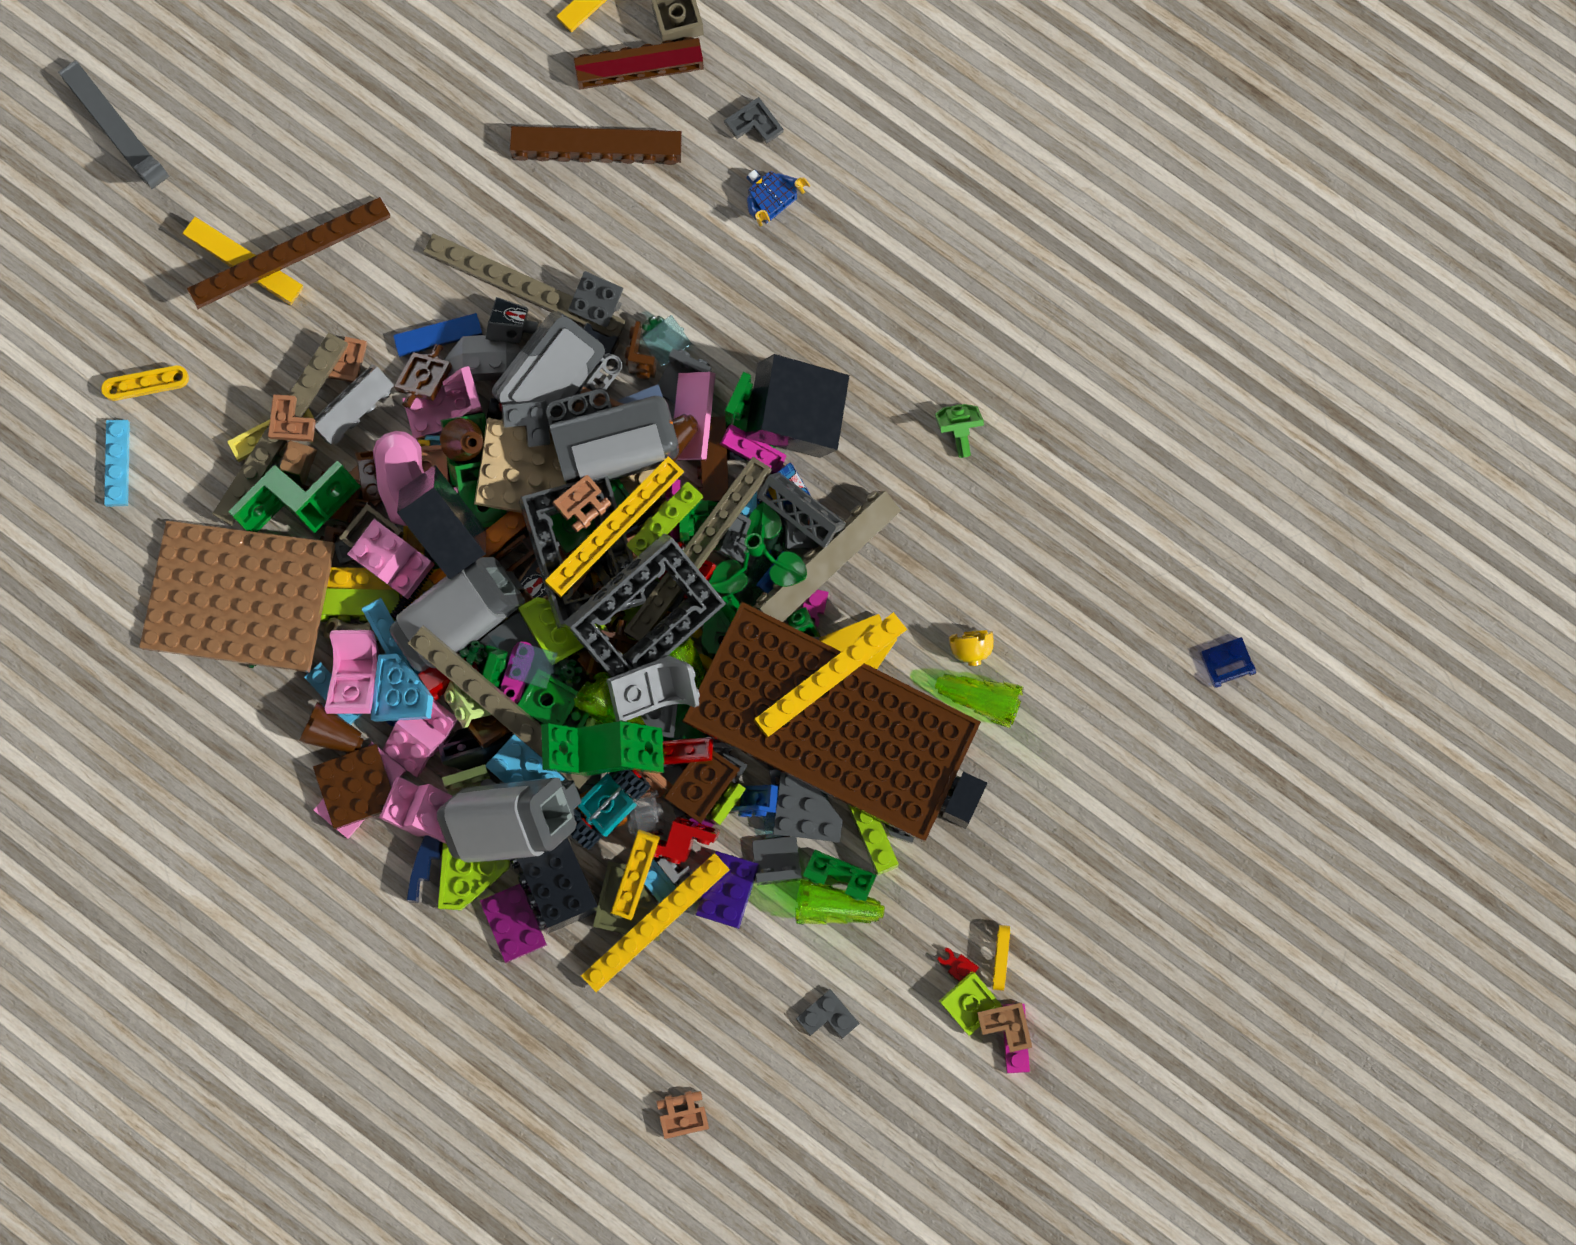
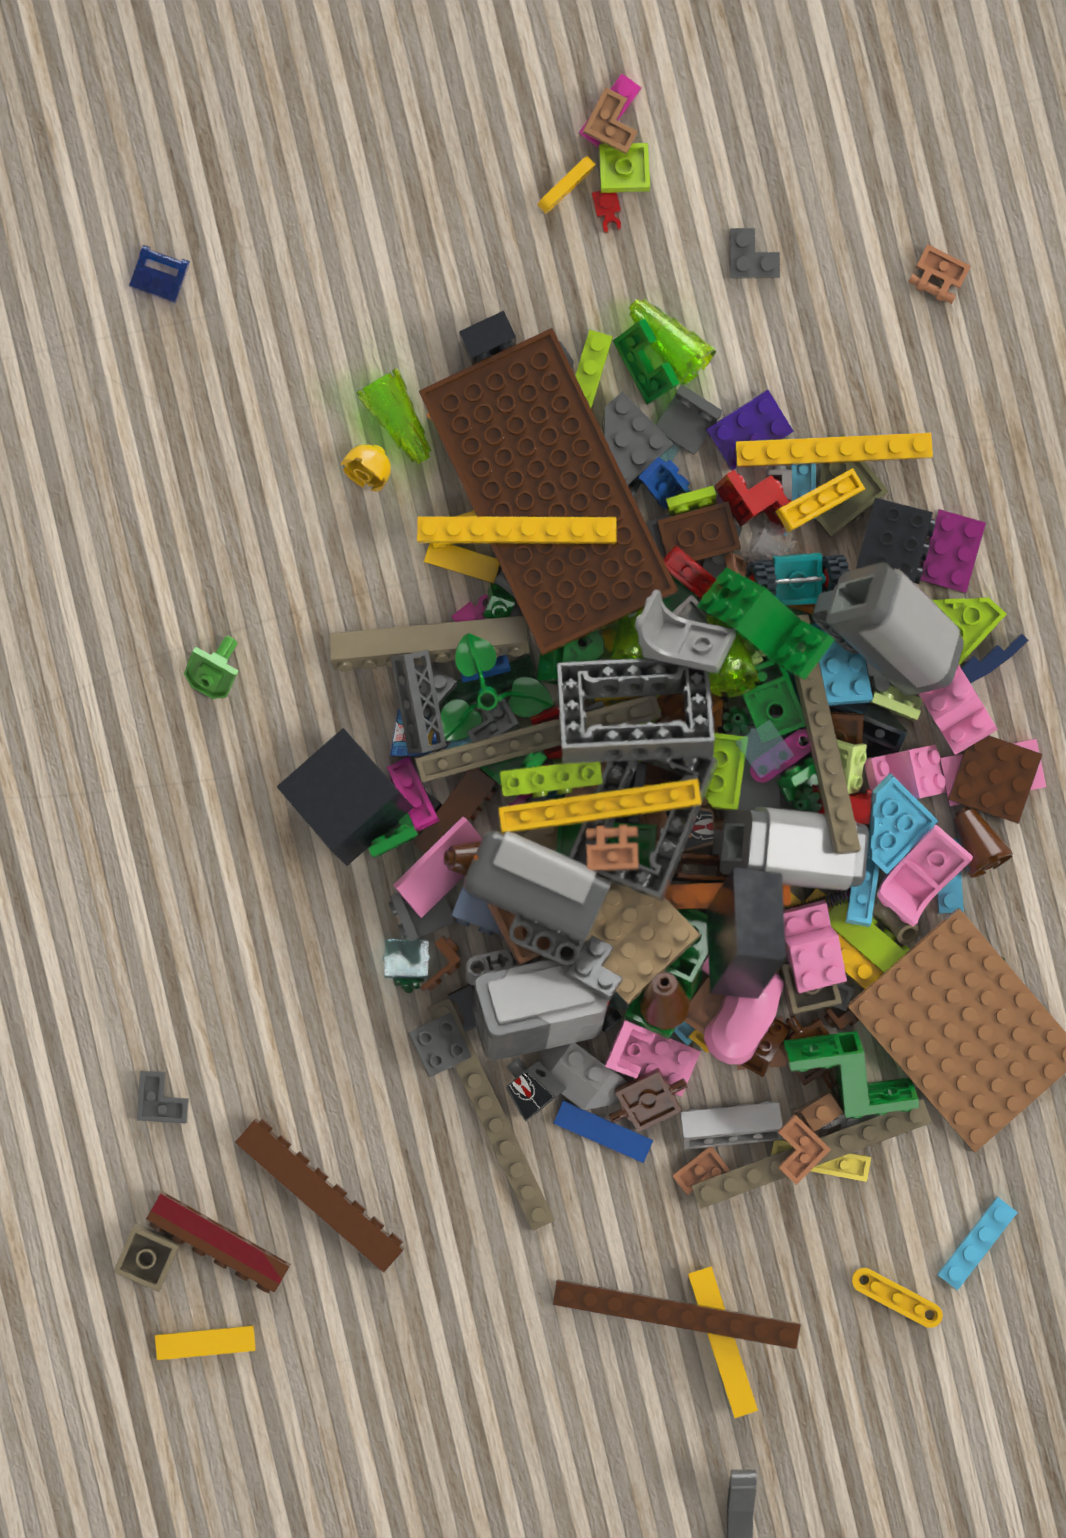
camera: 140 degrees left, 10 degrees up
(772, 194) = (202, 1017): blue torso -> none

